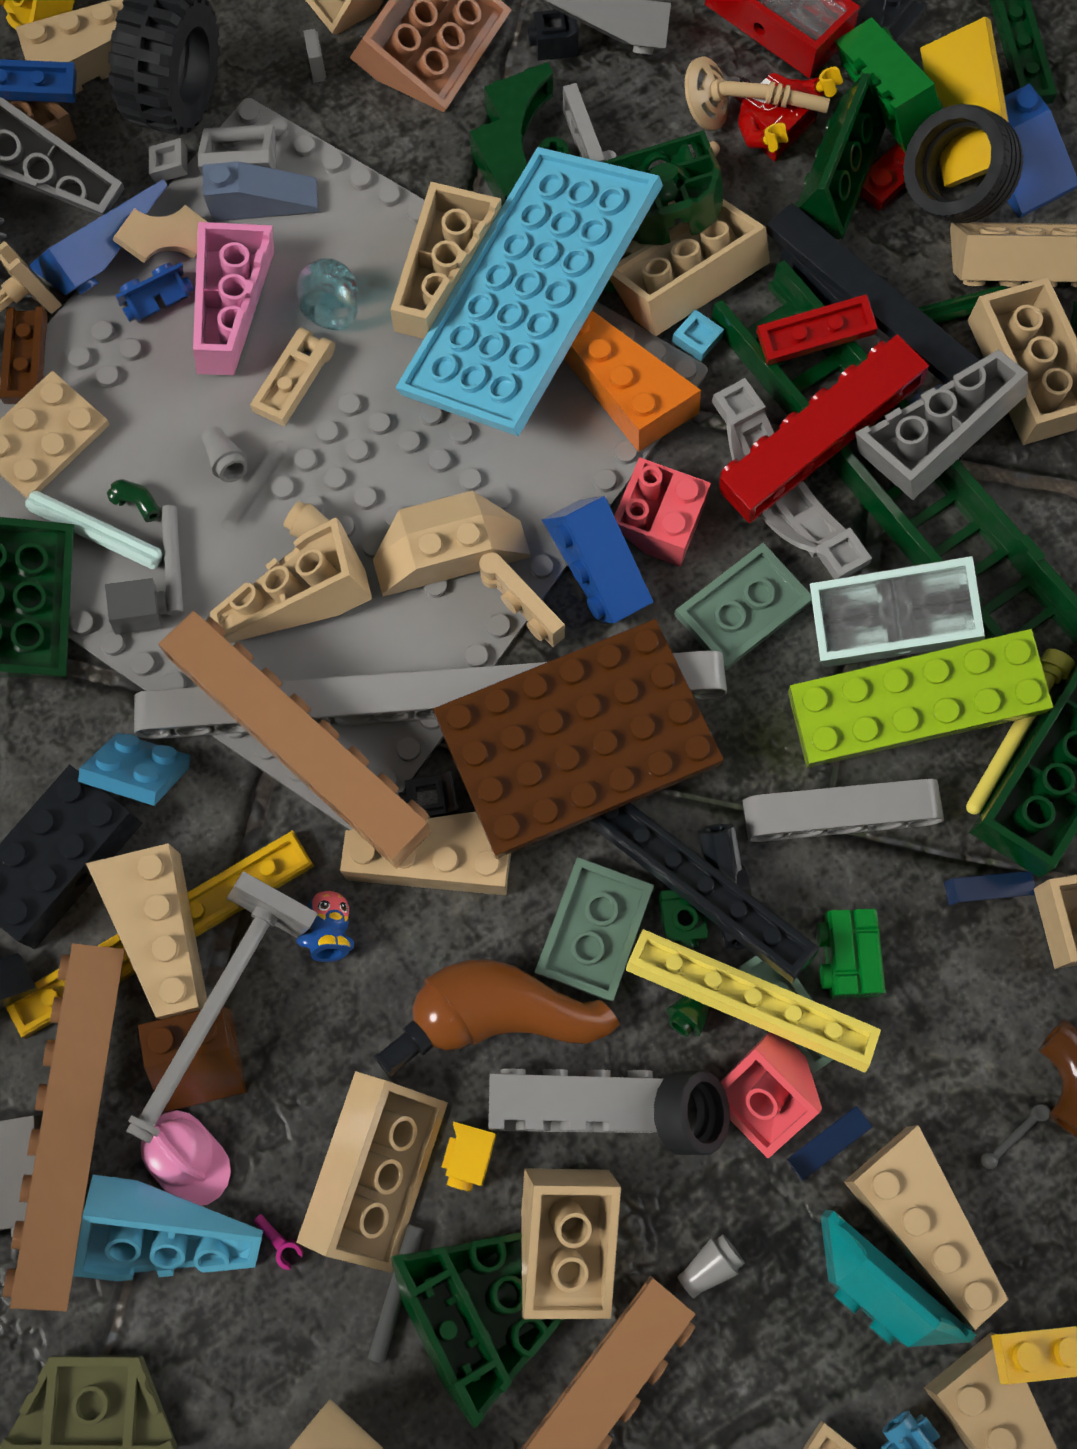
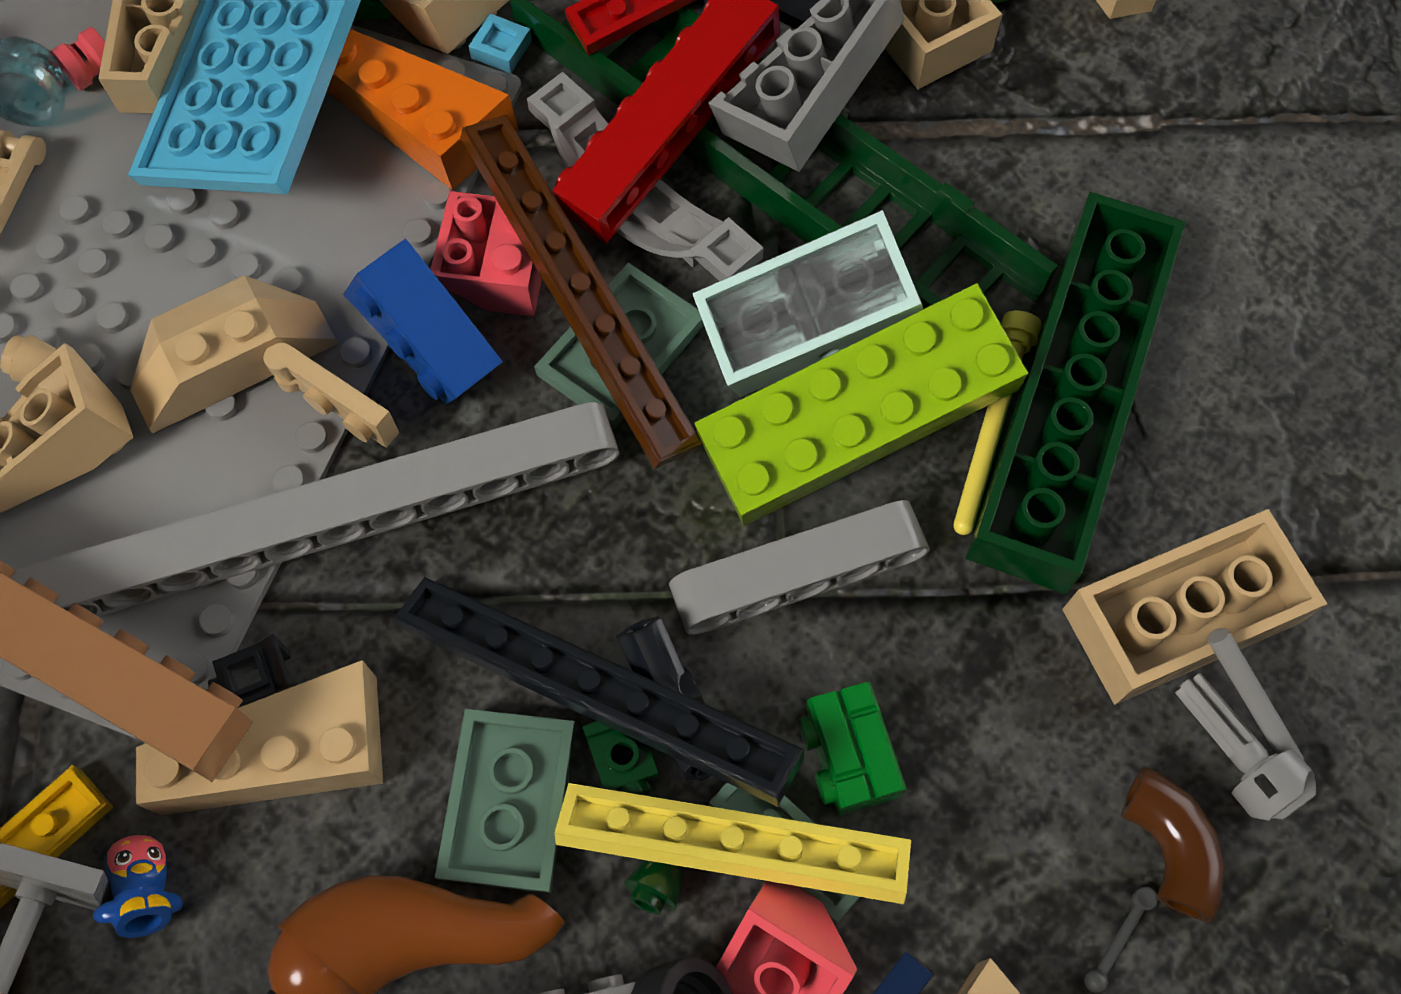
camera: 15 degrees left, 5 degrees down
(376, 282) = (70, 58): none -> coral wheel
(577, 737) = (426, 553): reddish brown plate -> none
(723, 559) = (580, 291): none -> reddish brown tile
(989, 887) = (1006, 620): dark blue piece -> none

